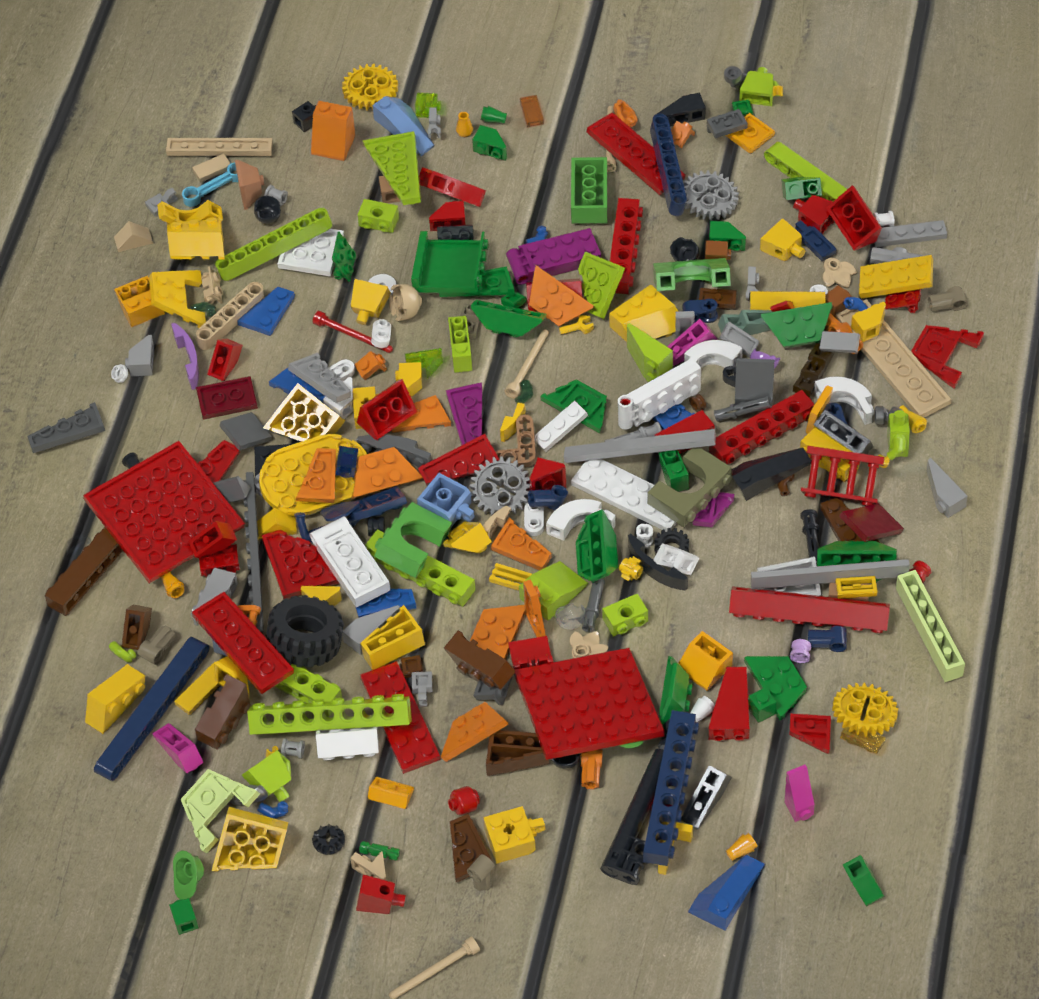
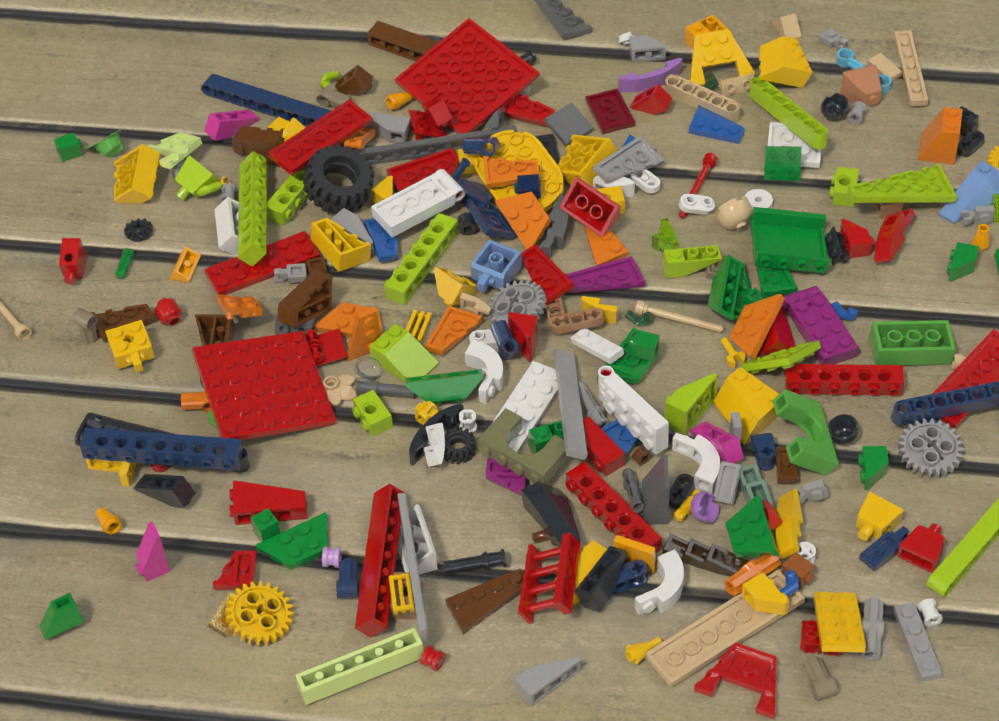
camera: 85 degrees right, 5 degrees down
(113, 697) = (279, 76): yellow wedge -> none
(170, 214) = (808, 41): yellow arch -> none
(275, 812) = (166, 191): blue arm -> none
(284, 492) = (479, 145): none -> dark blue piece
(366, 867) = (104, 258): tan slope -> none
(368, 300) = (733, 186): yellow torso -> none
(370, 364) = (660, 202): orange bracket -> none
(411, 375) = (639, 228): yellow slope -> none
(412, 521) = (428, 222): bright green arch -> none
(572, 383) = (645, 345): none -> green brick
(675, 691) = (281, 454): green wedge -> none
(702, 708) = (262, 478): white cone -> none
(706, 660) = (318, 478): light orange slope -> none
(717, 250) = (848, 459): dark orange brick -> none
(724, 896) = (60, 513): blue wedge -> none
(801, 187) = (954, 524): green slope -> none
(839, 274) = (841, 574): tan plate -> none
(839, 342) = (728, 566): light grey tile -> none
(854, 219) = (912, 575): red slope -> none
(854, 552) = (440, 589): green wedge -> none
(871, 522) = (489, 608): dark red tile -> none
(897, 432) = (615, 626): lime torso -> none

